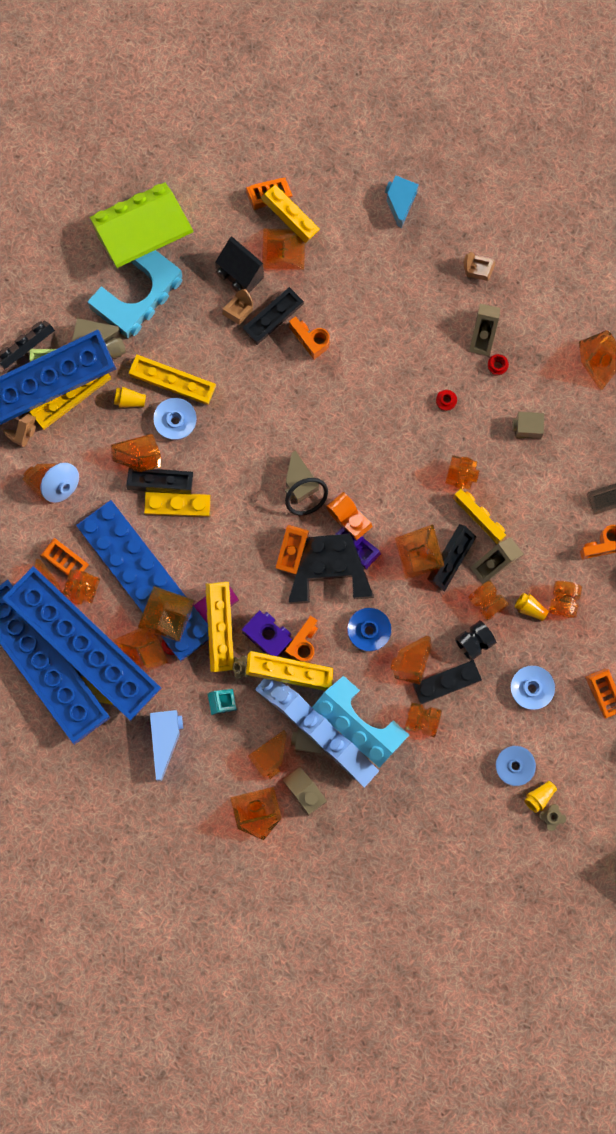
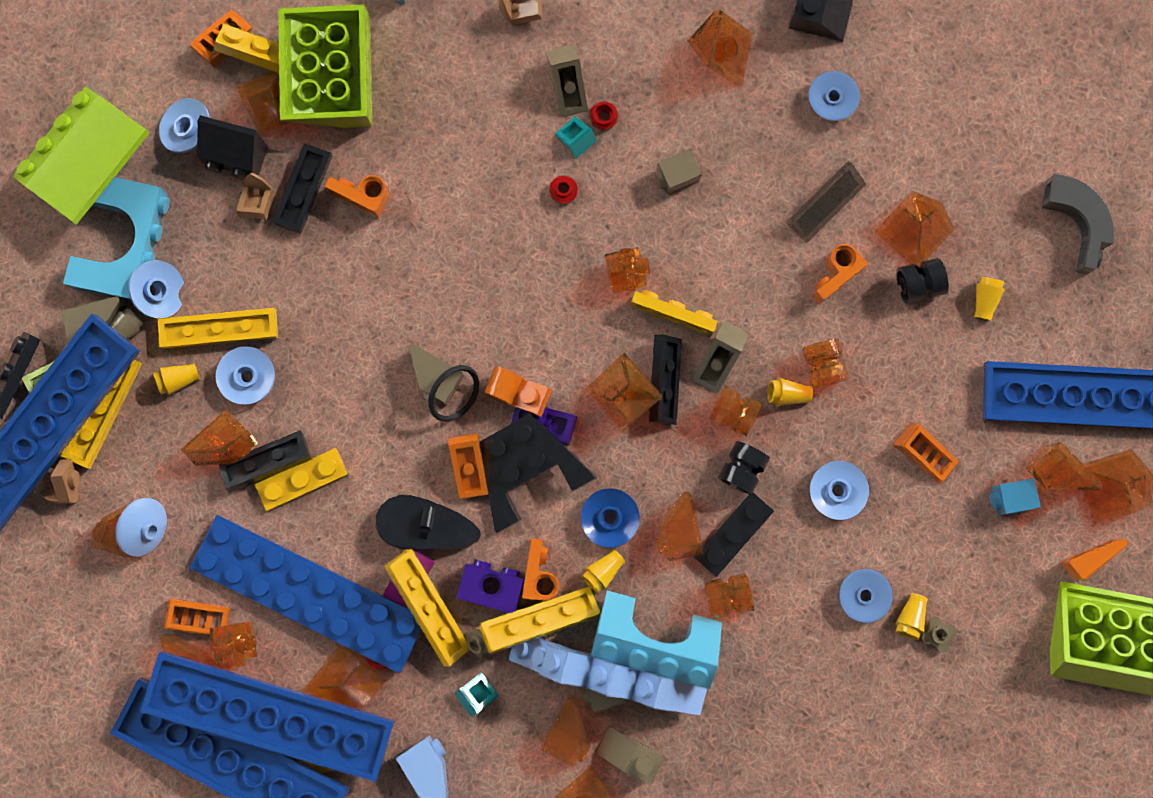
camera: 25 degrees left, 5 degrees up
(153, 334) = (167, 284): none -> light blue dish
(166, 613) = (354, 625): clear orange slope -> none
(211, 233) = (175, 125): none -> light blue dish
(243, 573) = (423, 525): none -> black shield
(328, 243) = (325, 66): none -> lime slope
(346, 662) = (603, 571): none -> yellow cone
(472, 369) = (576, 136): none -> teal slope

